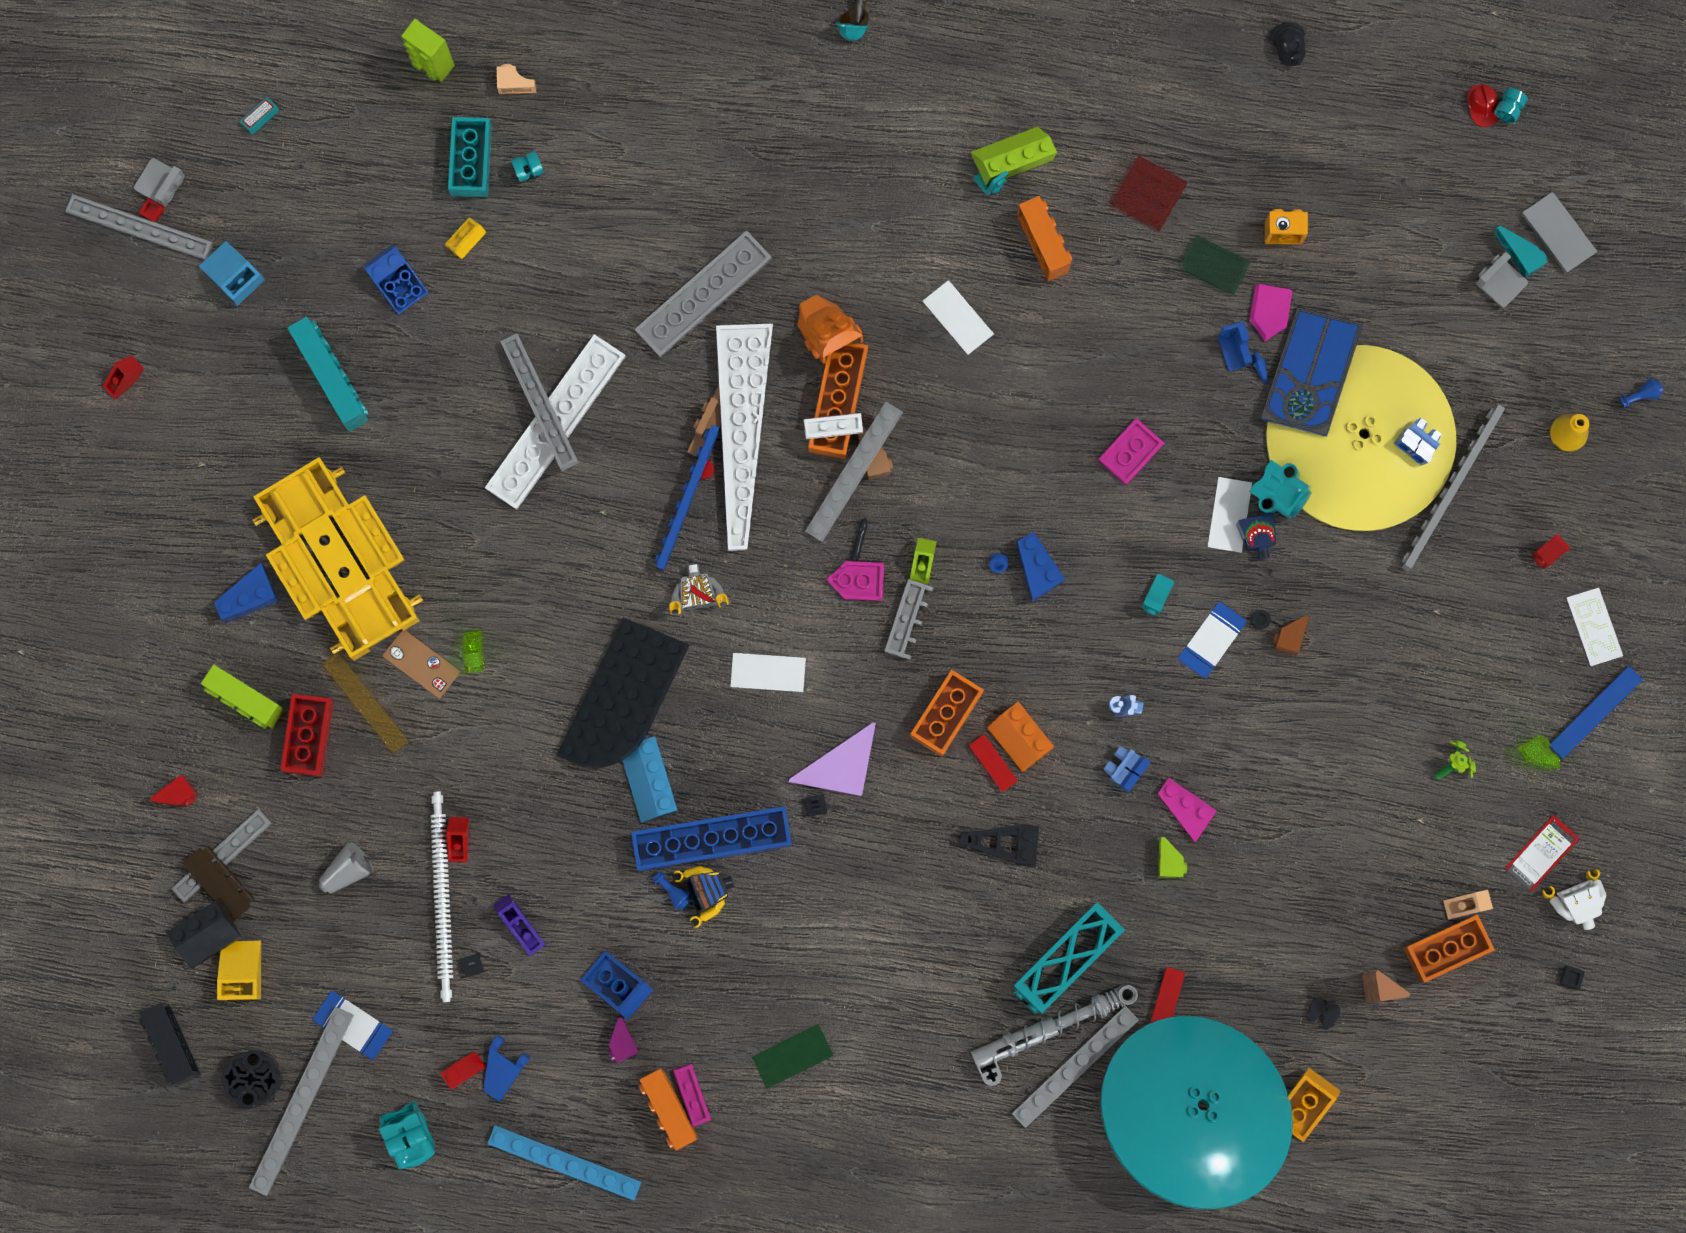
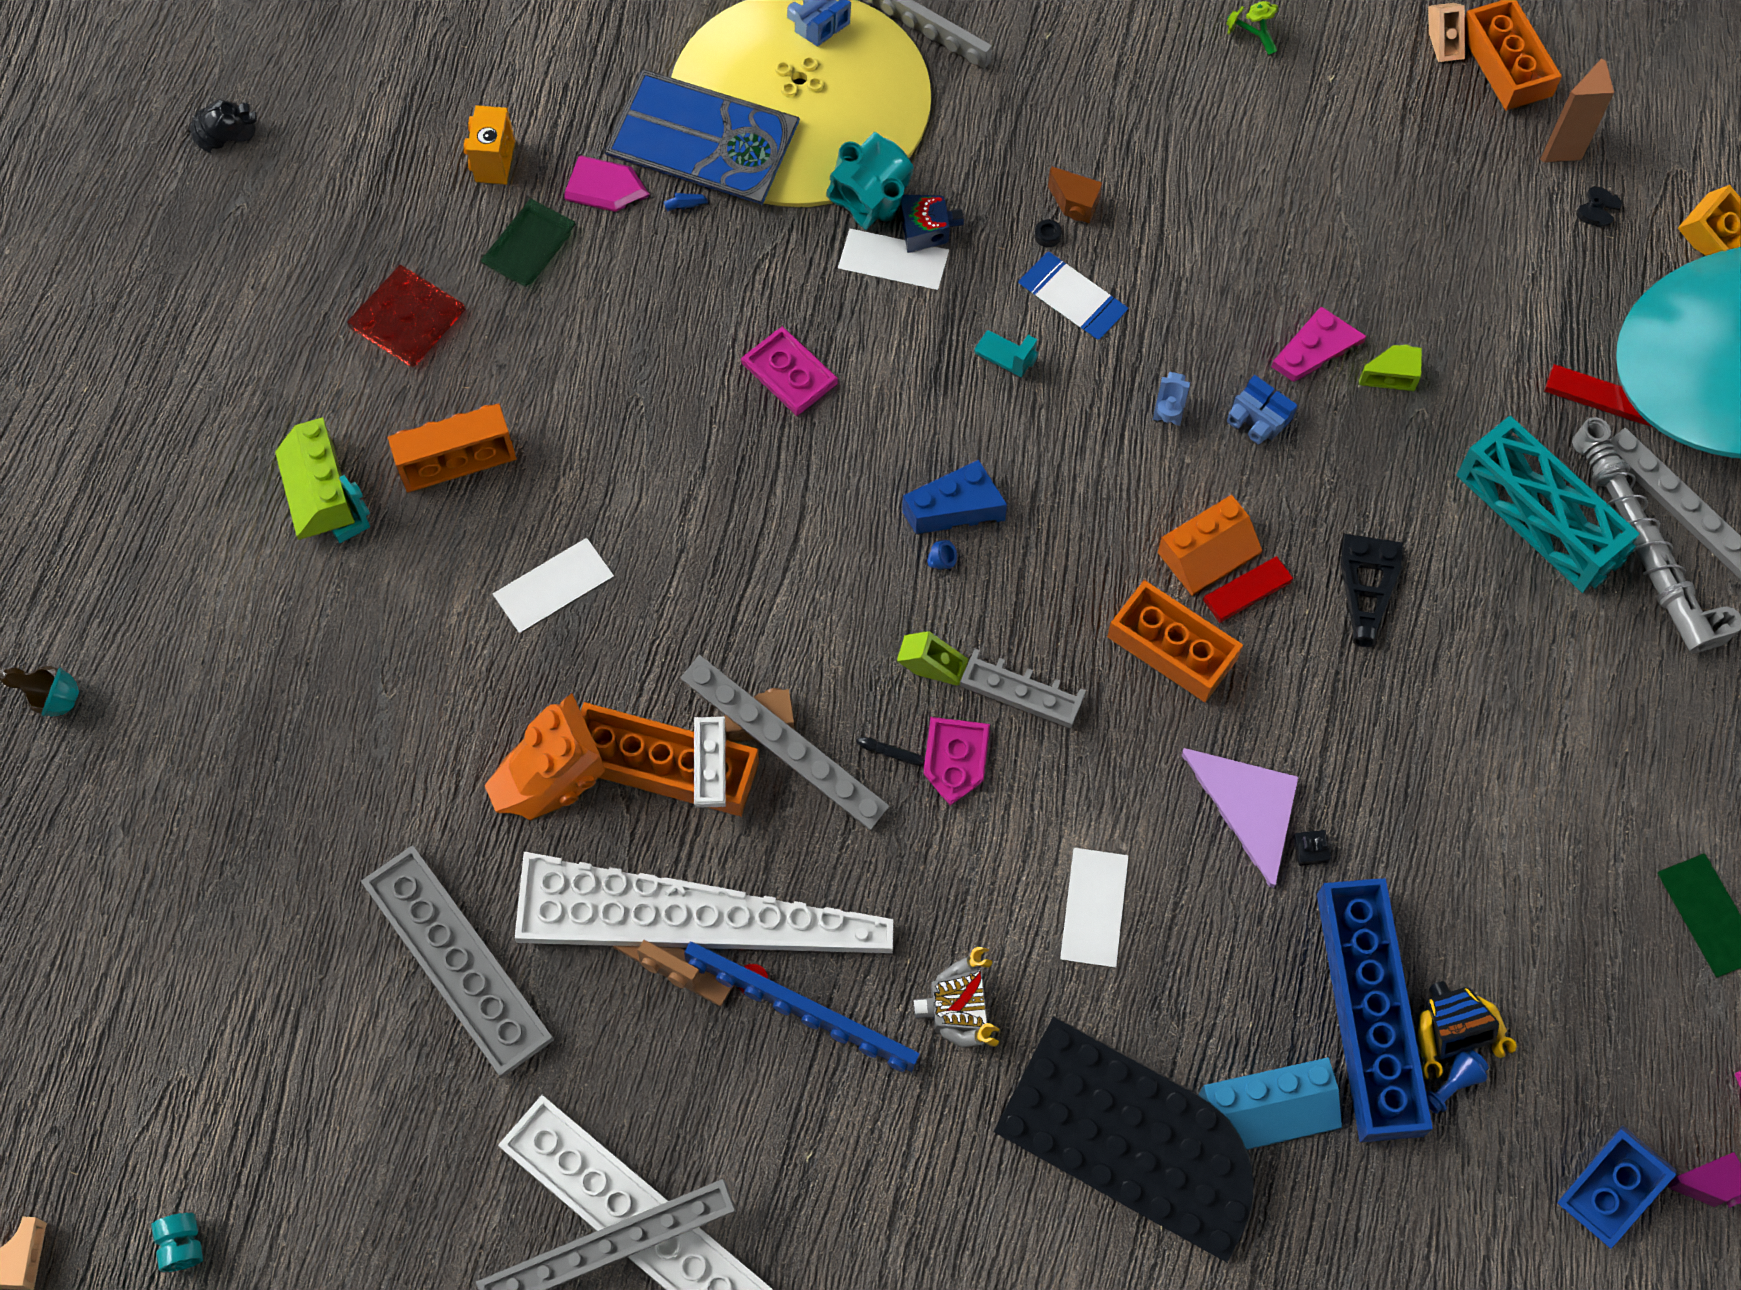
camera: 85 degrees left, 15 degrees down
(1234, 346) = (651, 224): blue panel -> none

